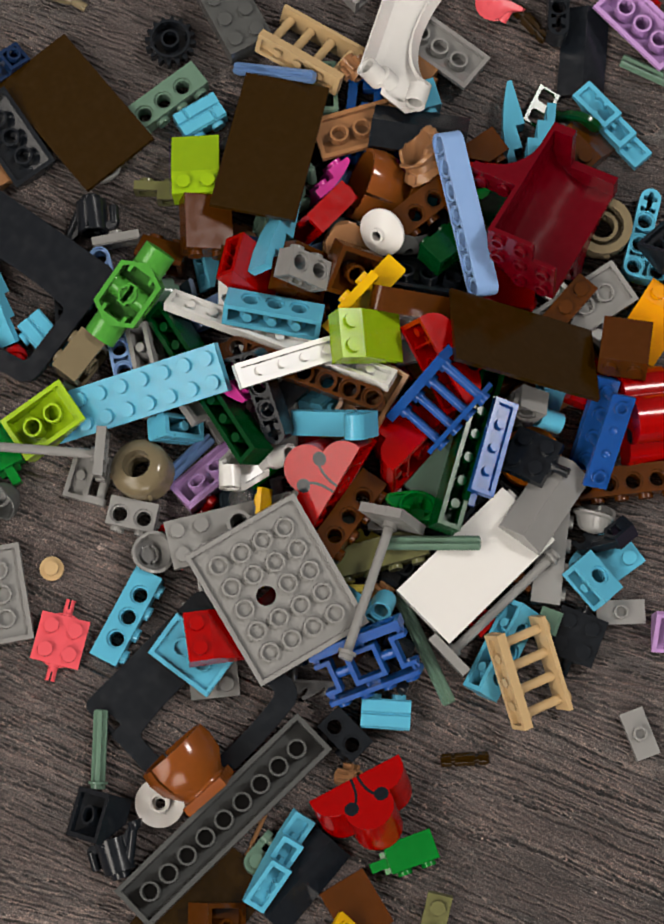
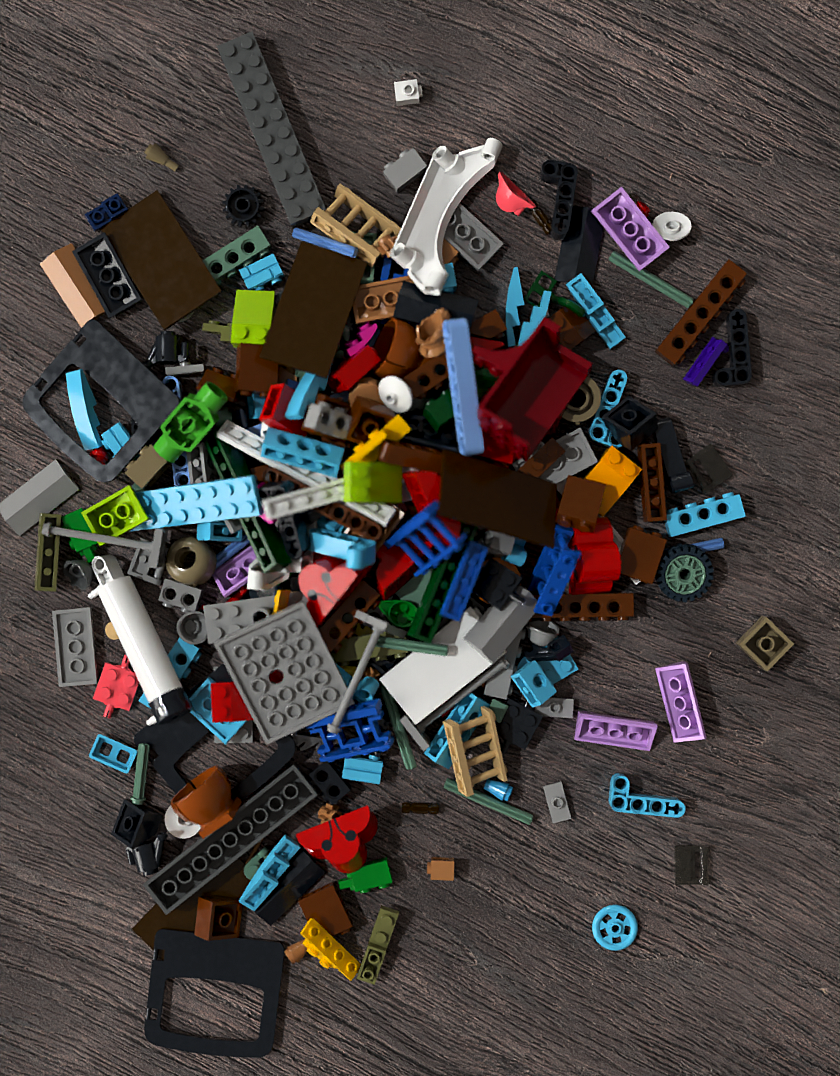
camera: 10 degrees right, 10 degrees up
(65, 718) = (111, 760): none -> medium azure piece
(89, 576) = (140, 641): none -> white piece
(501, 834) = (441, 868): none -> medium nougat brick
(553, 742) = (492, 803): none -> sand green axle
(563, 723) = (499, 789): none -> dark azure cone

